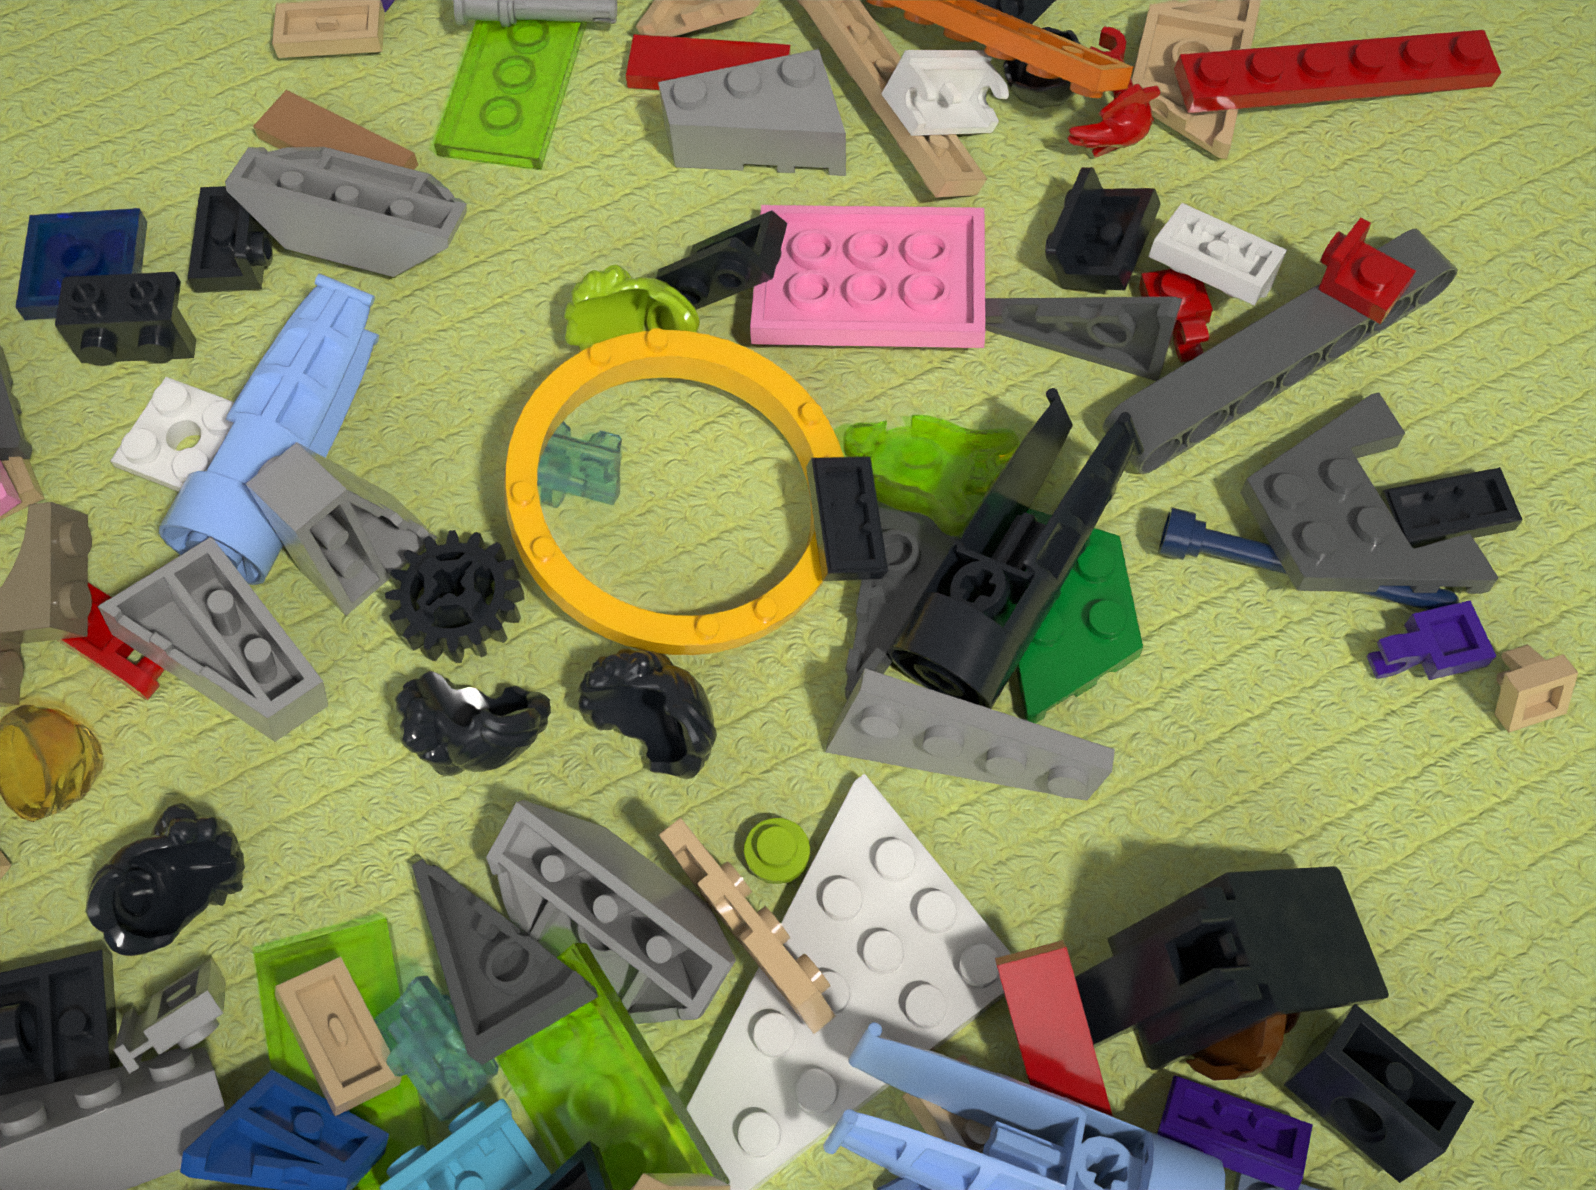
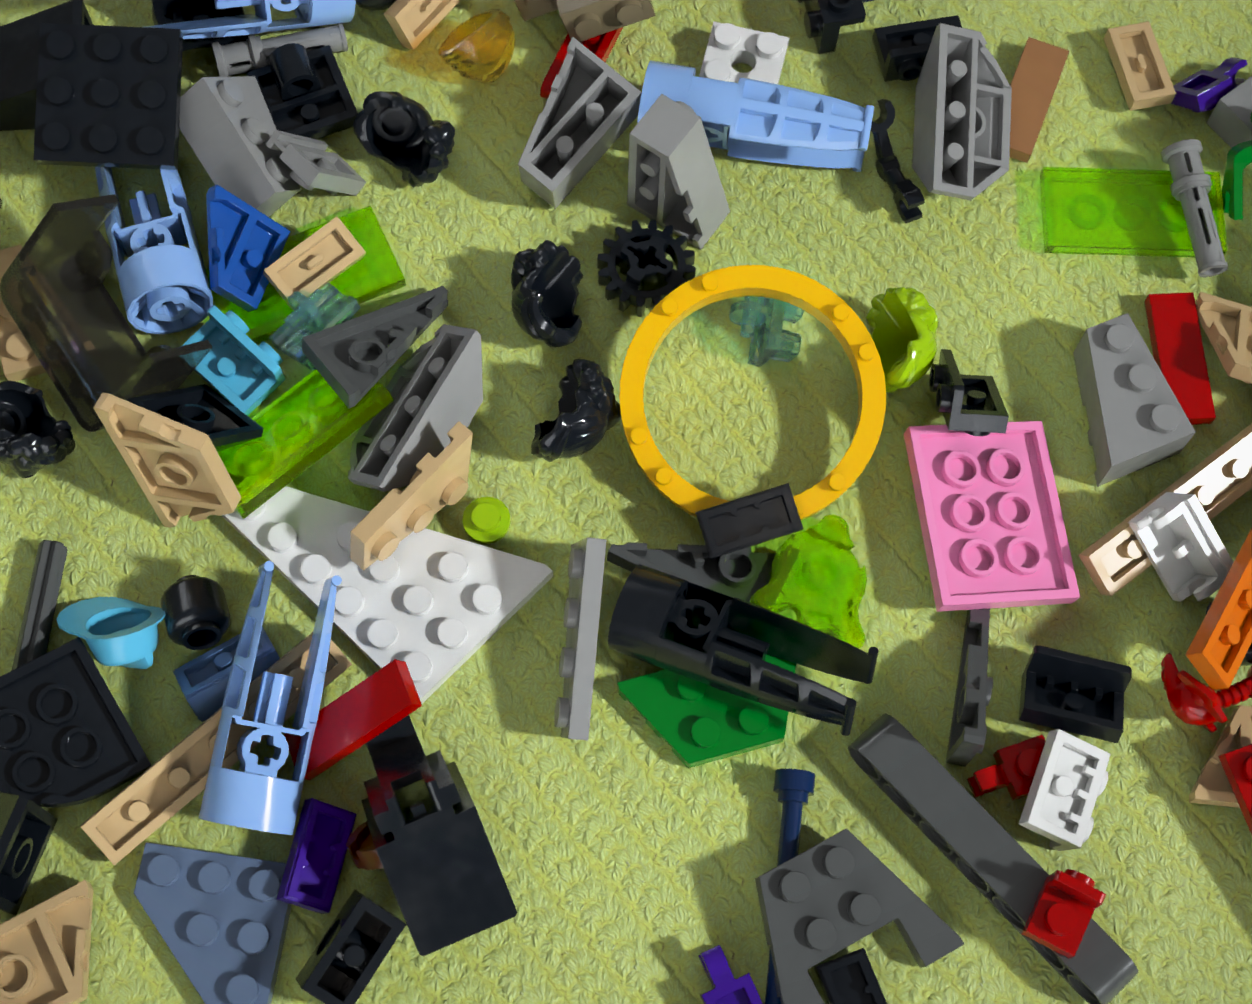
camera: 75 degrees right, 5 degrees up
(430, 289) = (906, 194): none -> black piece

